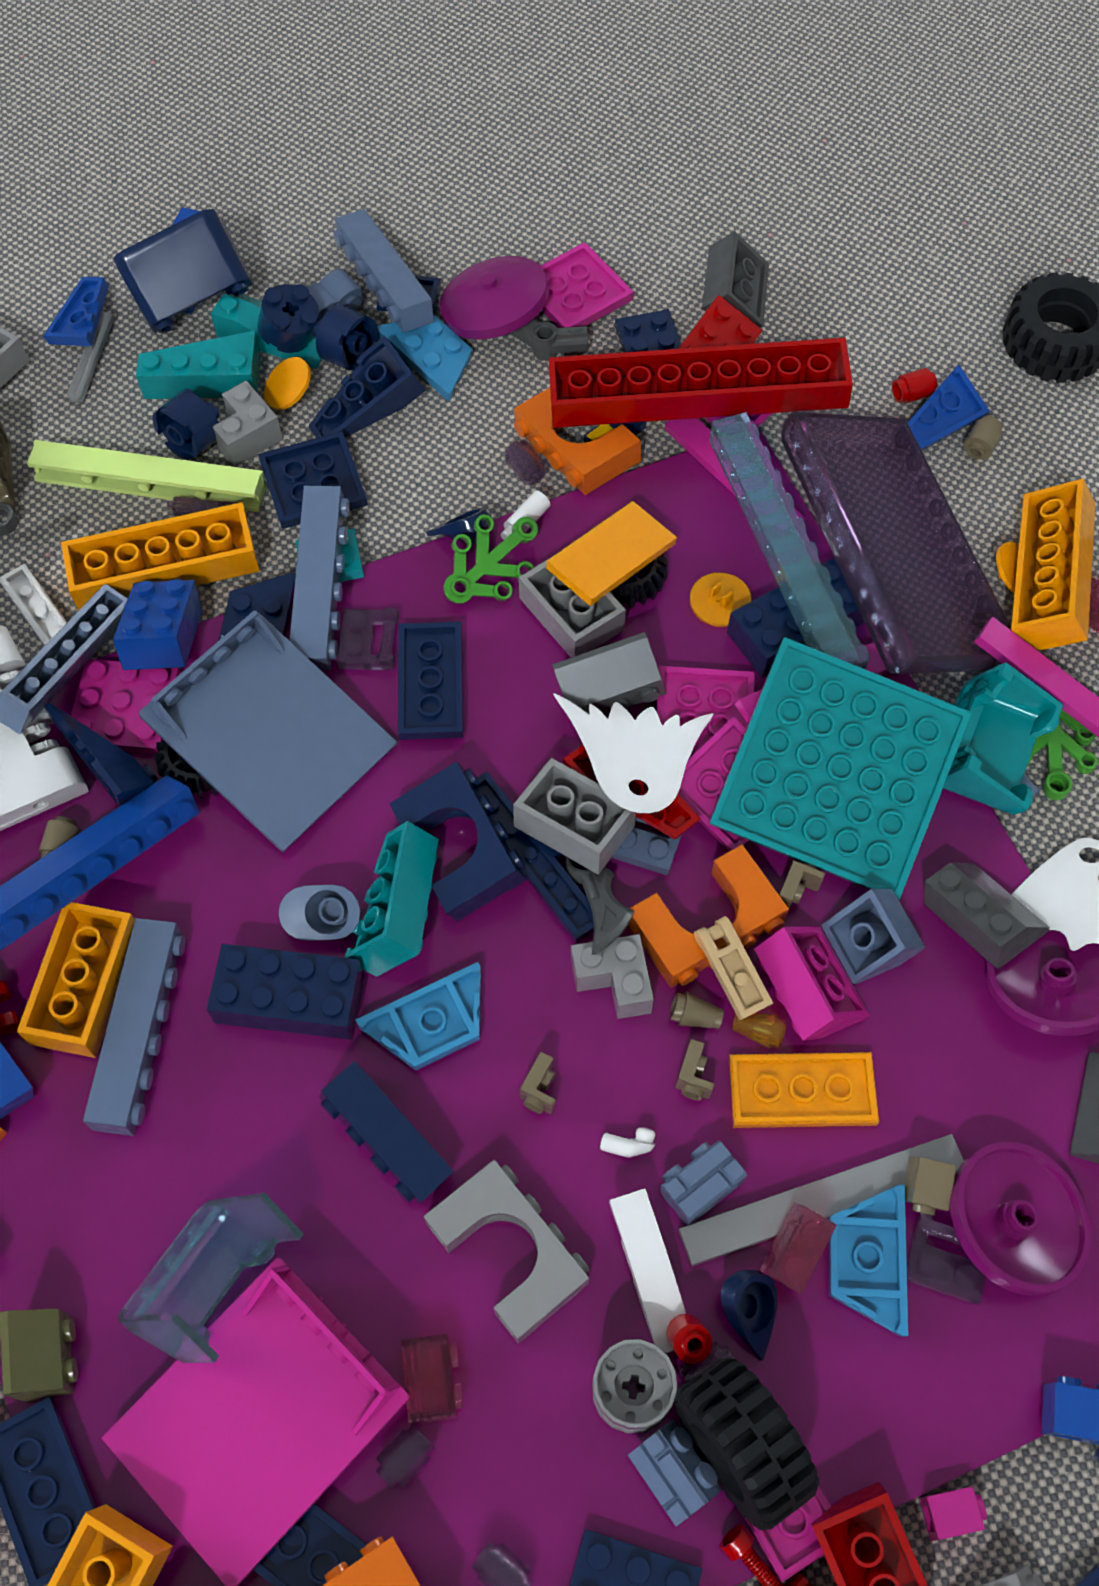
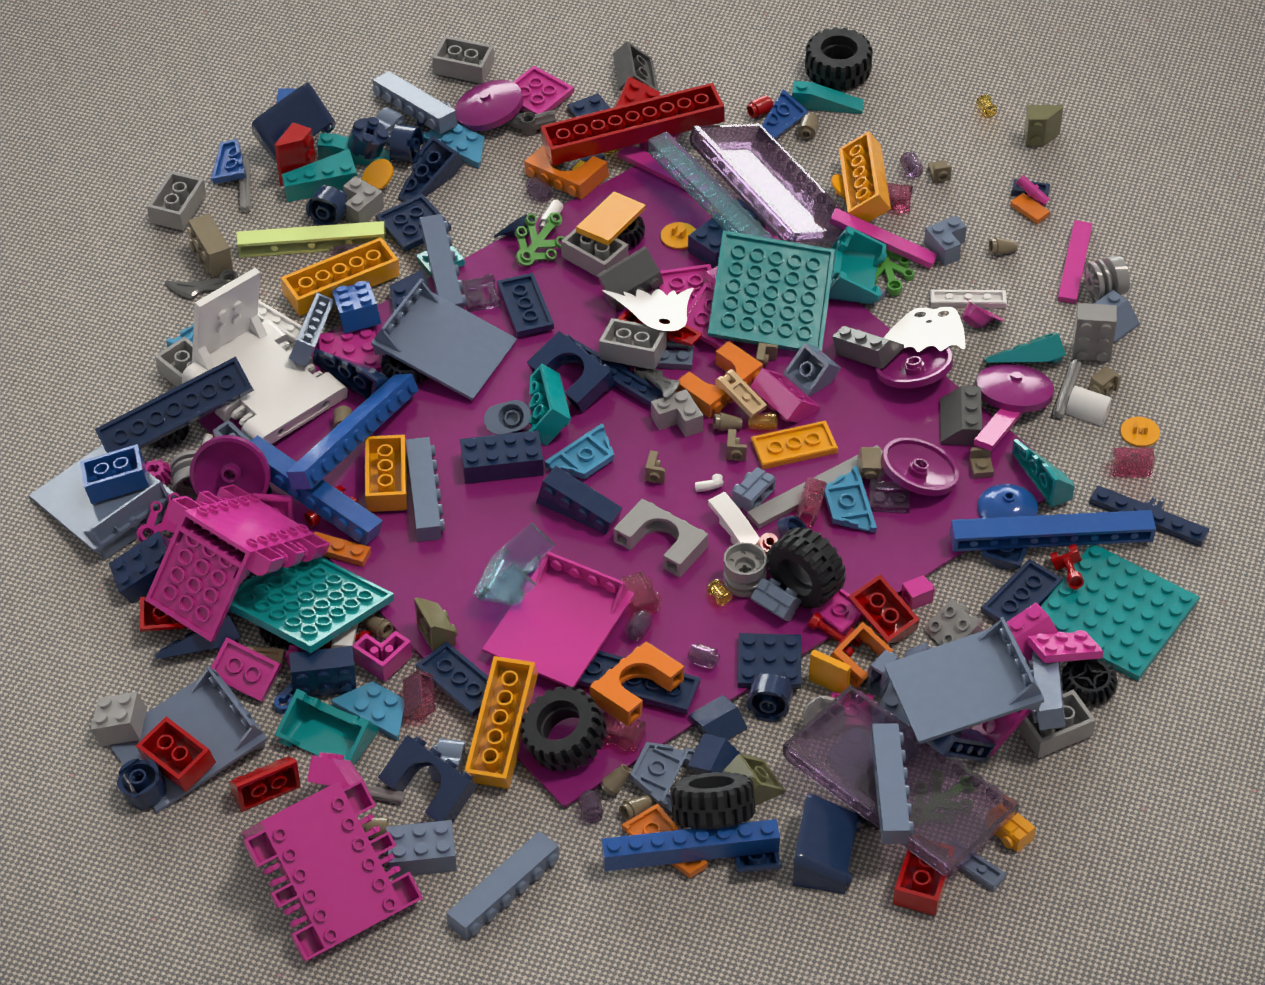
camera: 15 degrees left, 15 degrees down
(164, 316) = (294, 149): none -> red slope
(482, 211) = (463, 59): none -> light grey brick
(575, 1414) = (719, 592): none -> clear yellow bush
(1017, 391) = (821, 98): none -> teal wedge

